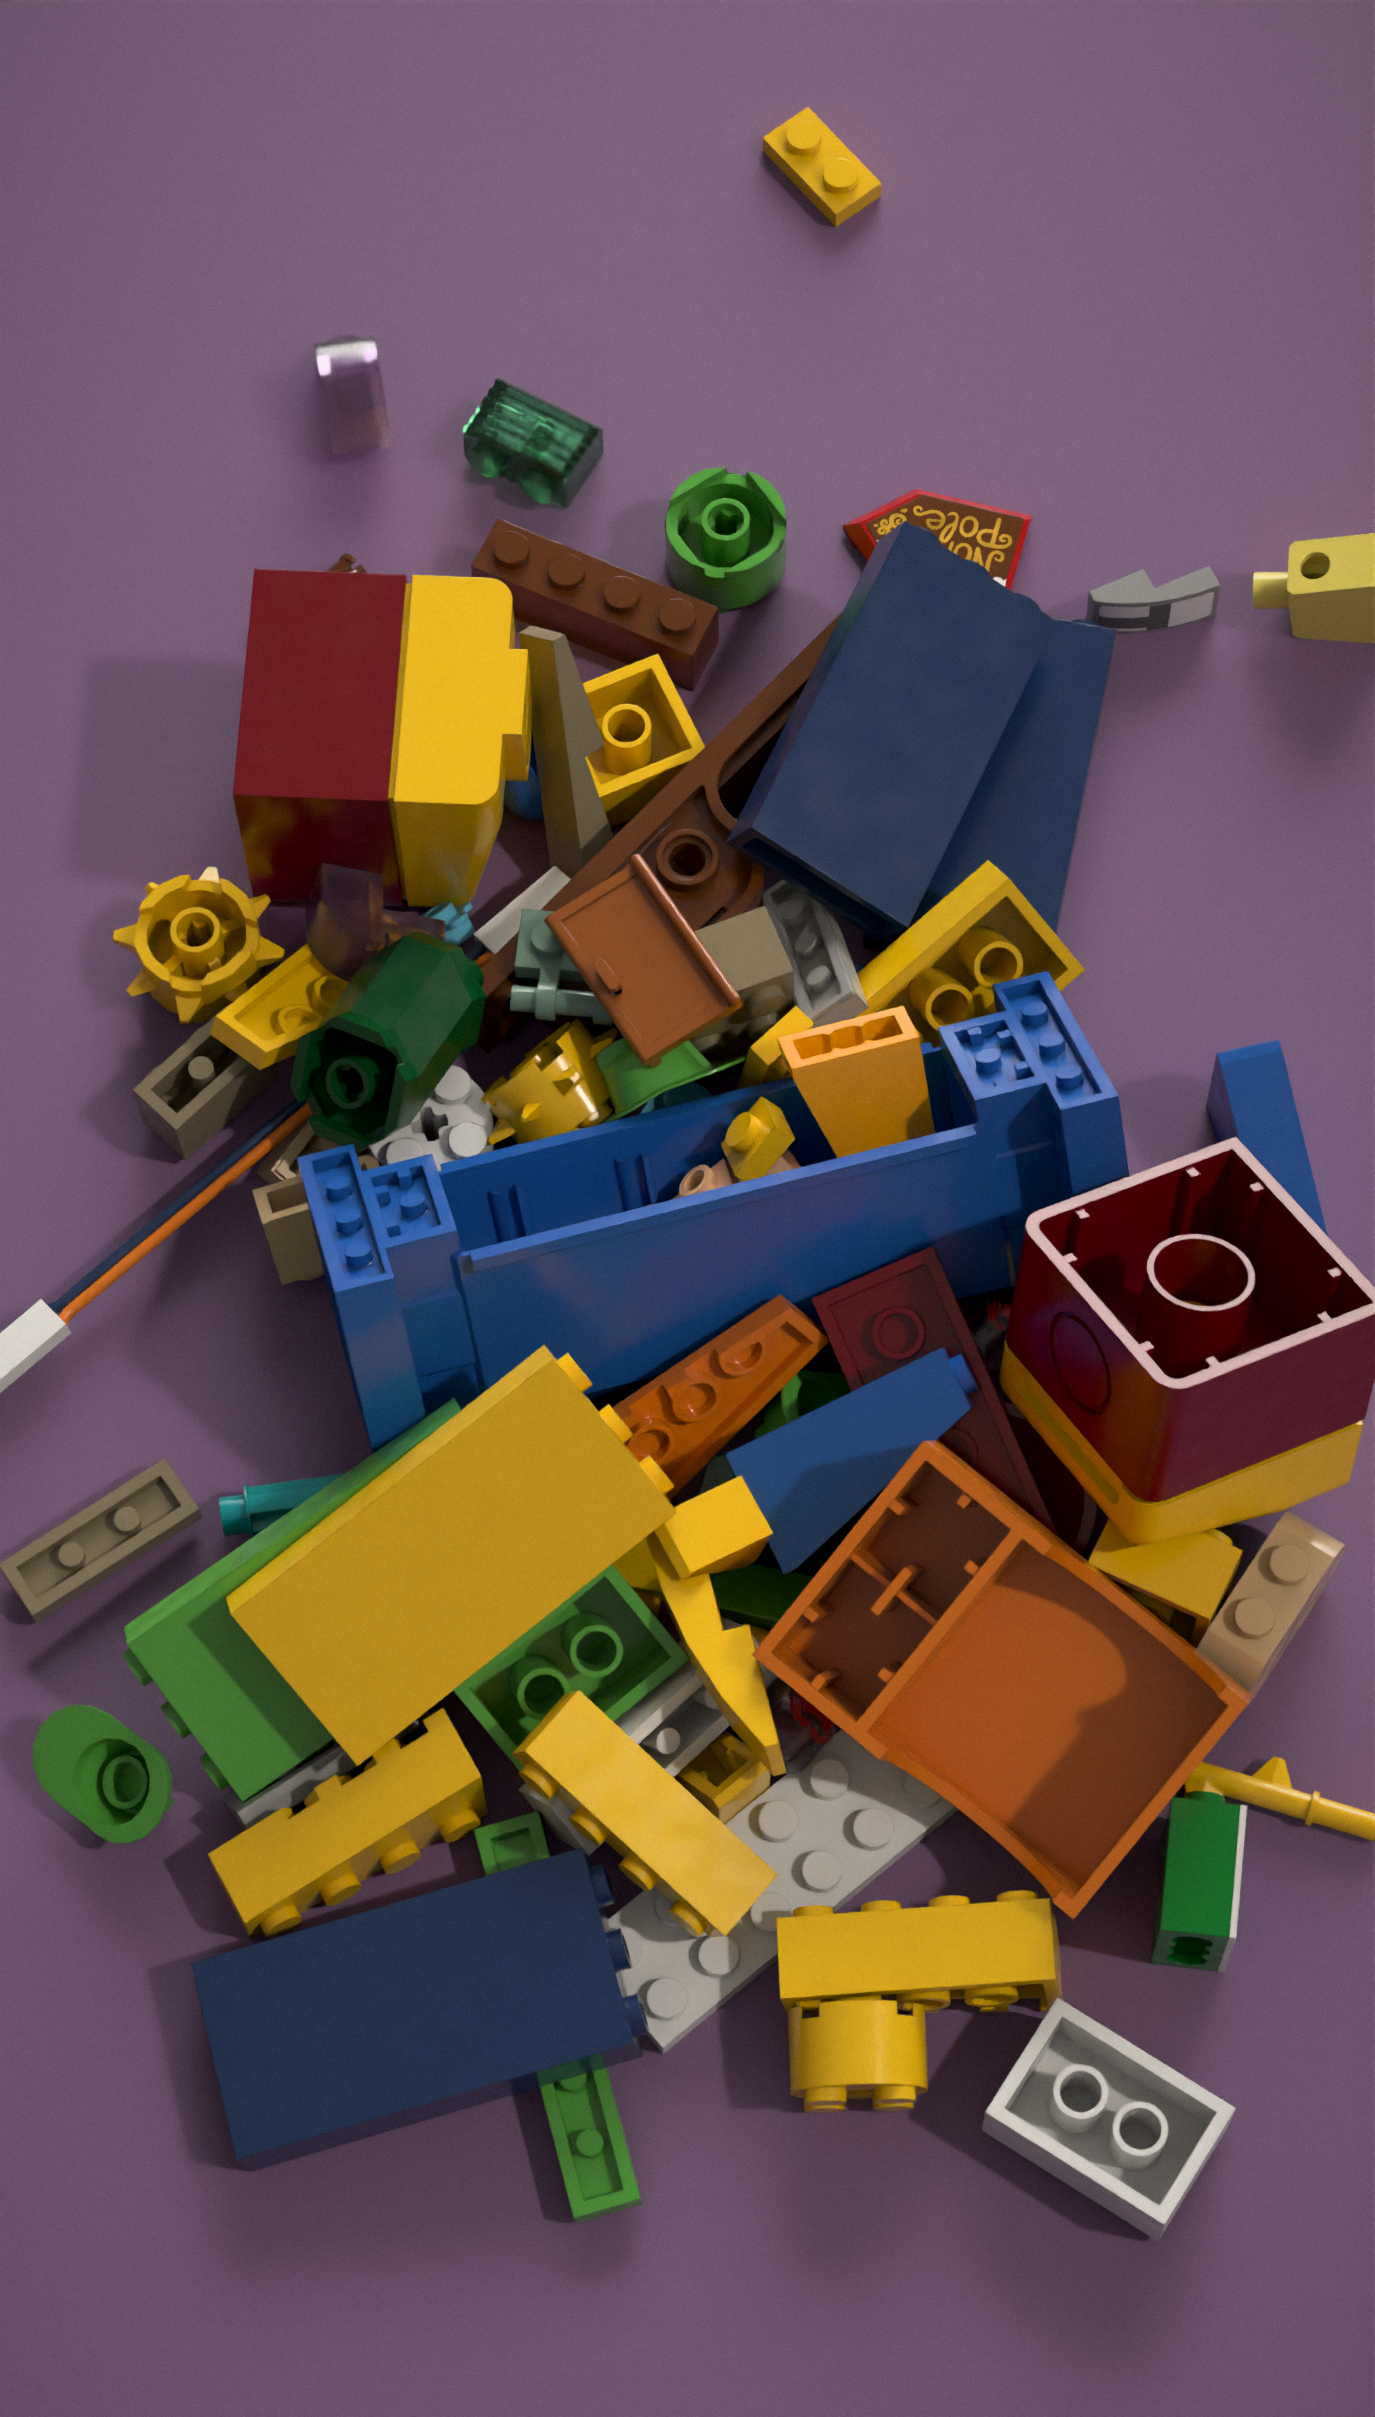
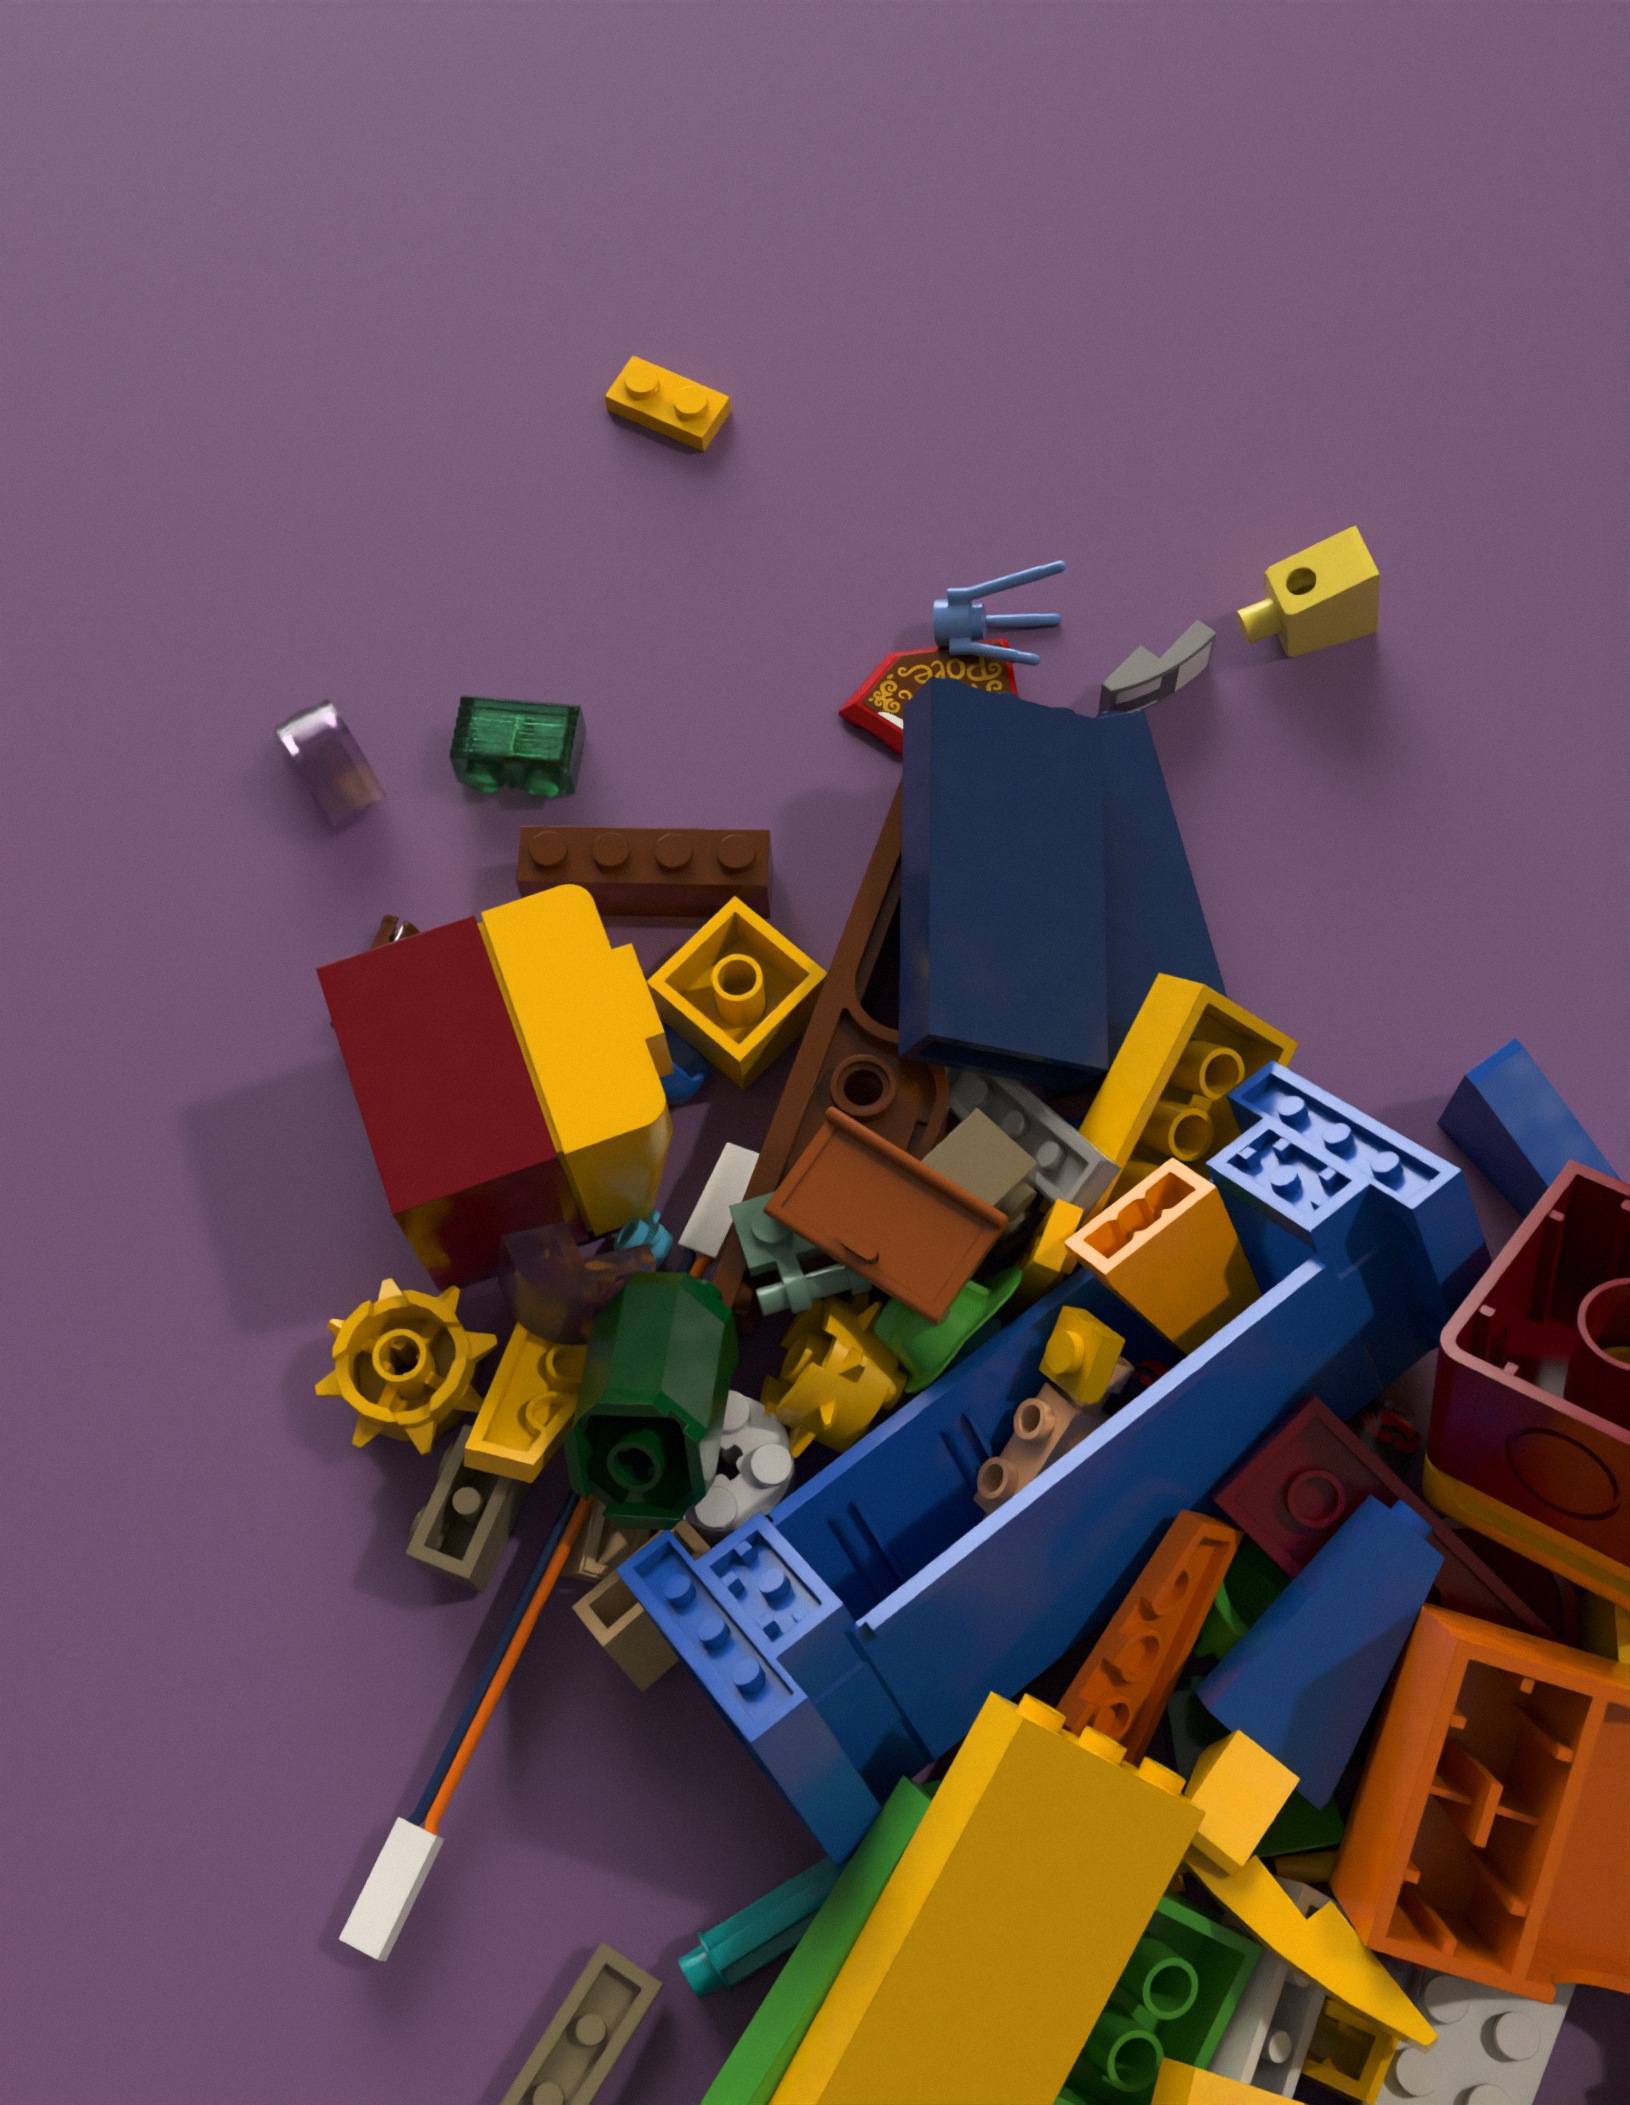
camera: 20 degrees left, 0 degrees up
(562, 738) = (691, 1007): dark tan slope -> none
(725, 538) = (742, 762): bright green brick -> none
(993, 484) = (961, 621): none -> medium blue plant

